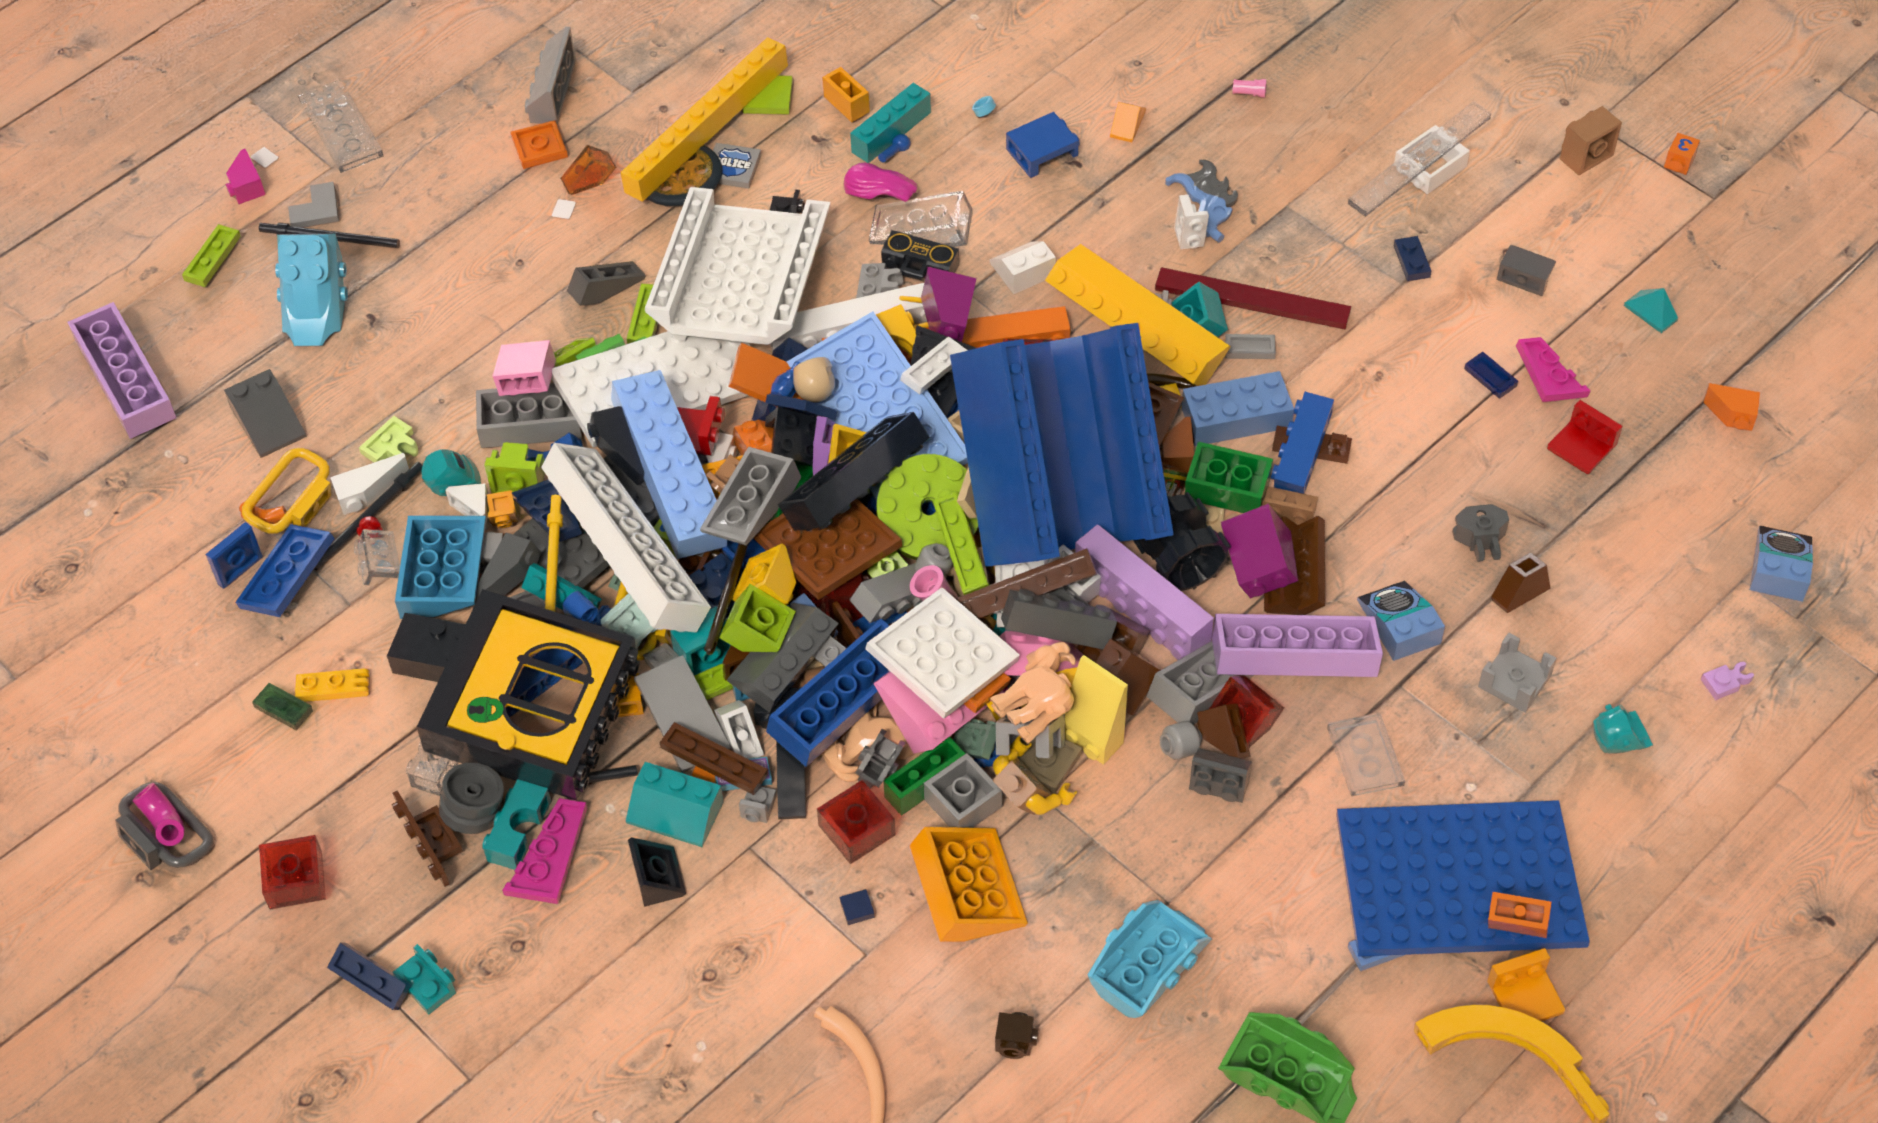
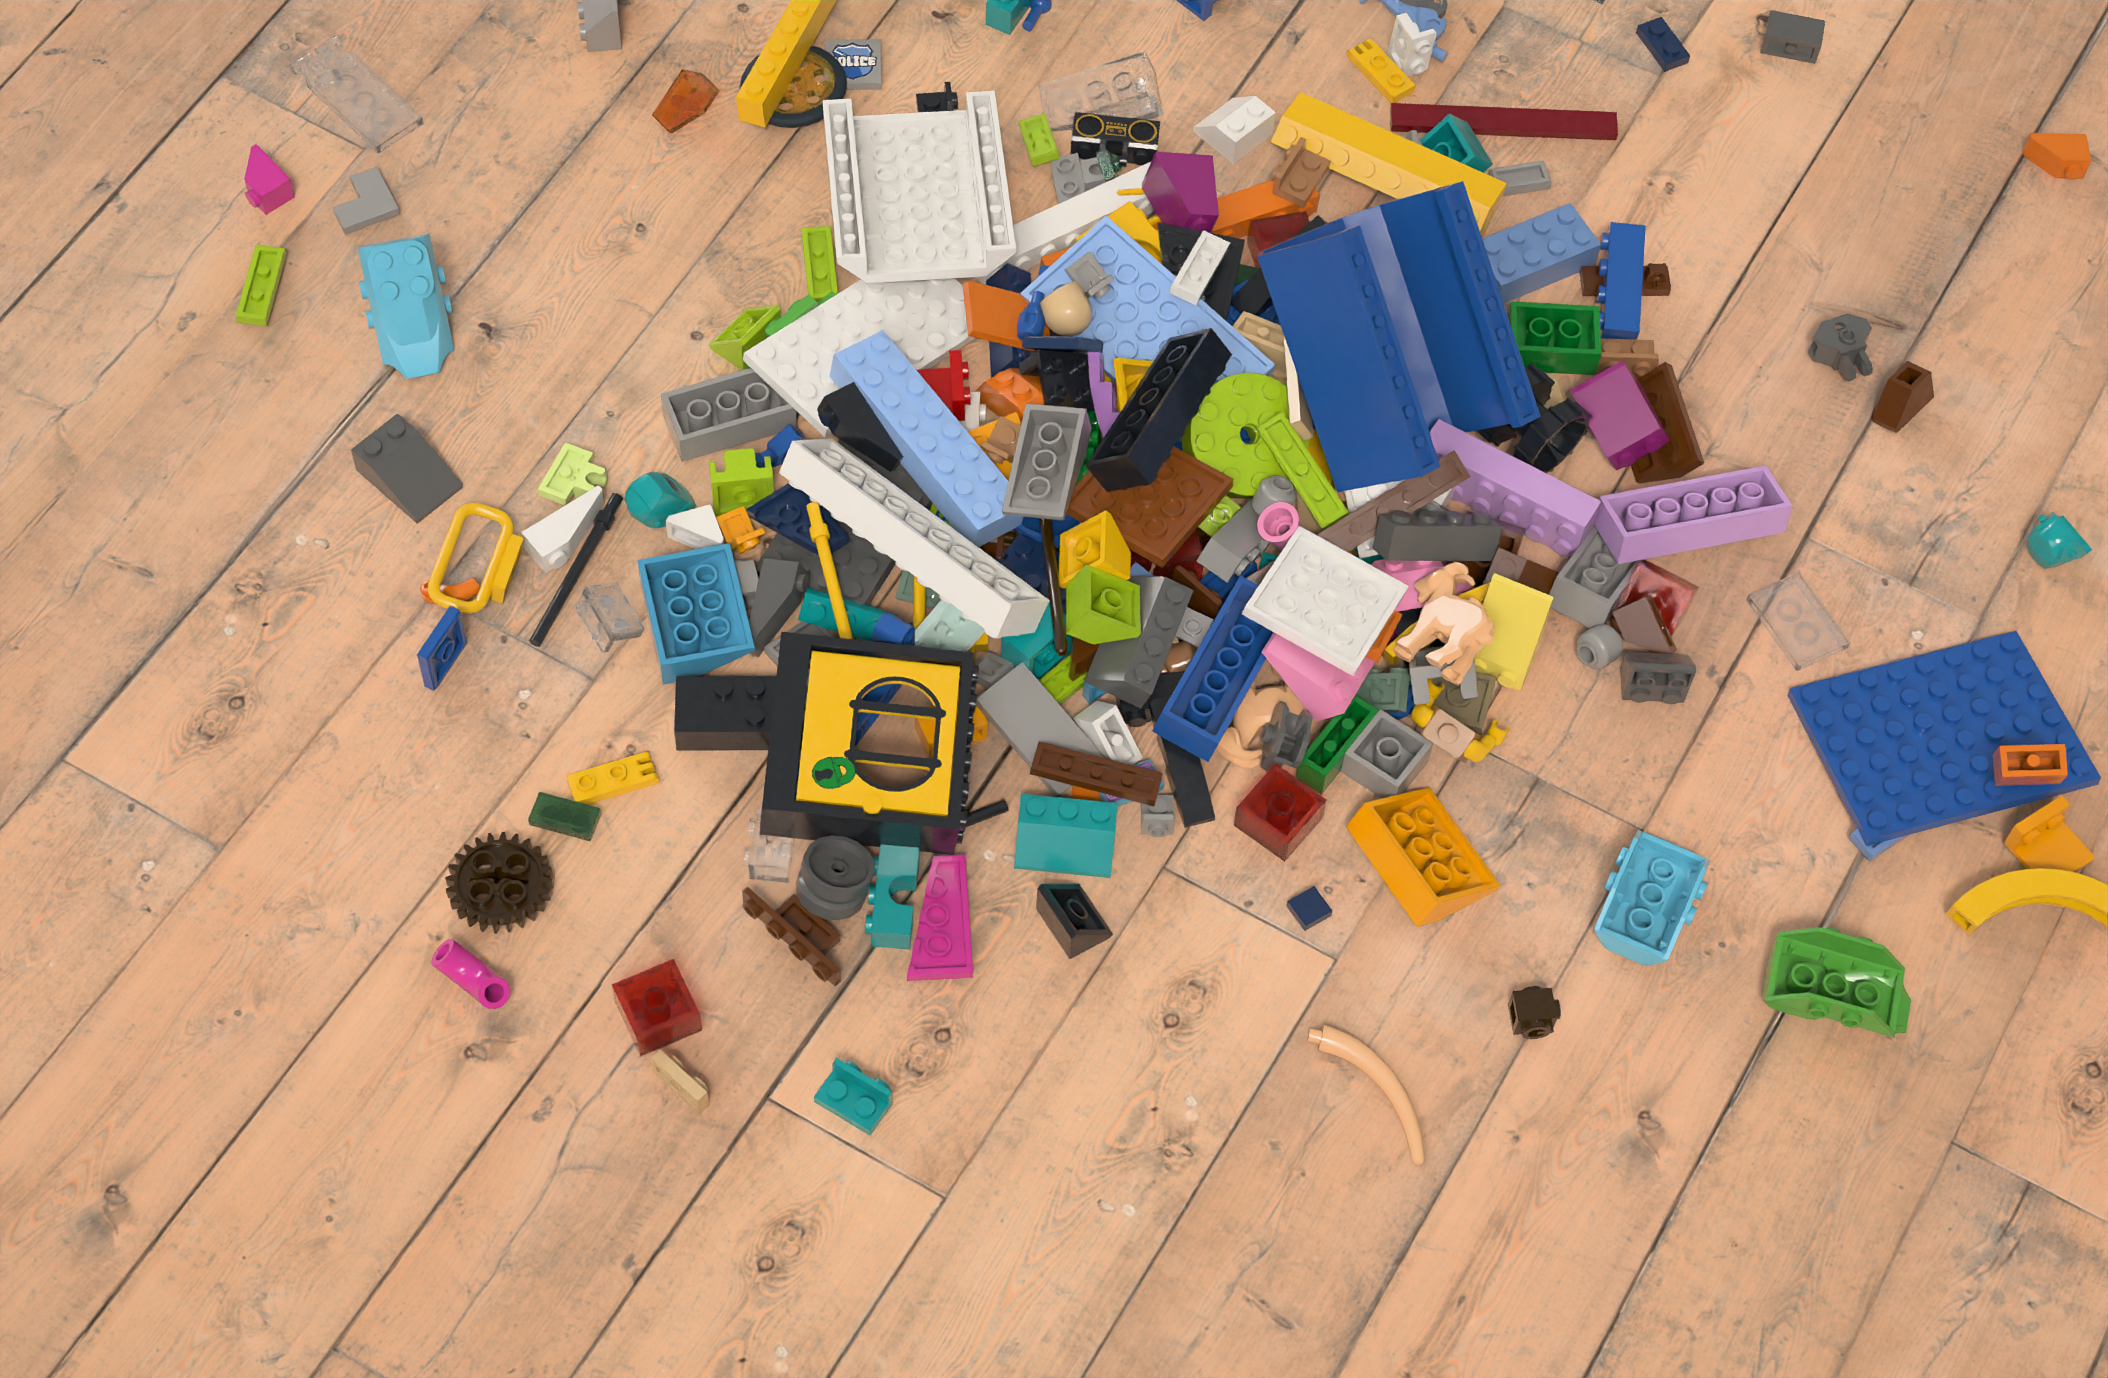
camera: 20 degrees left, 5 degrees up
(122, 370) = (209, 448): lavender brick -> none
(146, 845) = (465, 1013): dark grey bar -> none
(211, 747) = (496, 907): none -> dark brown gear
(264, 157) = (276, 150): white sticker -> none
(285, 228) = (338, 237): black bar -> none
(285, 570) = (506, 654): blue plate -> none
(287, 926) = (672, 1073): none -> tan plate
(369, 523) = (584, 579): red plate -> none
(369, 976) = (789, 1107): dark blue plate -> none
(524, 368) = (715, 357): bright pink brick -> none
(539, 144) = (610, 77): orange tile -> none
(563, 209) = (669, 152): white sticker -> none
(603, 281) = (754, 233): dark grey slope -> none
(841, 356) = (1089, 275): none -> light grey bracket
(858, 247) = (1038, 139): none -> lime plate
(869, 181) = (1029, 58): dark pink hair -> none
(903, 274) = (1109, 164): none -> clear green plate
(1056, 308) = (1299, 174): none -> medium nougat bracket
(1163, 241) = (1381, 71): none -> yellow hinge
(1403, 619) = (1793, 457): medium blue slope -> none
(1491, 375) = (1791, 164): clear blue tile -> none
(1515, 675) = (1928, 502): light grey panel -> none
(1547, 373) = (1854, 155): dark pink wing -> none
(1586, 438) = (1917, 218): red bracket -> none
(1653, 308) = (1939, 56): teal slope -> none

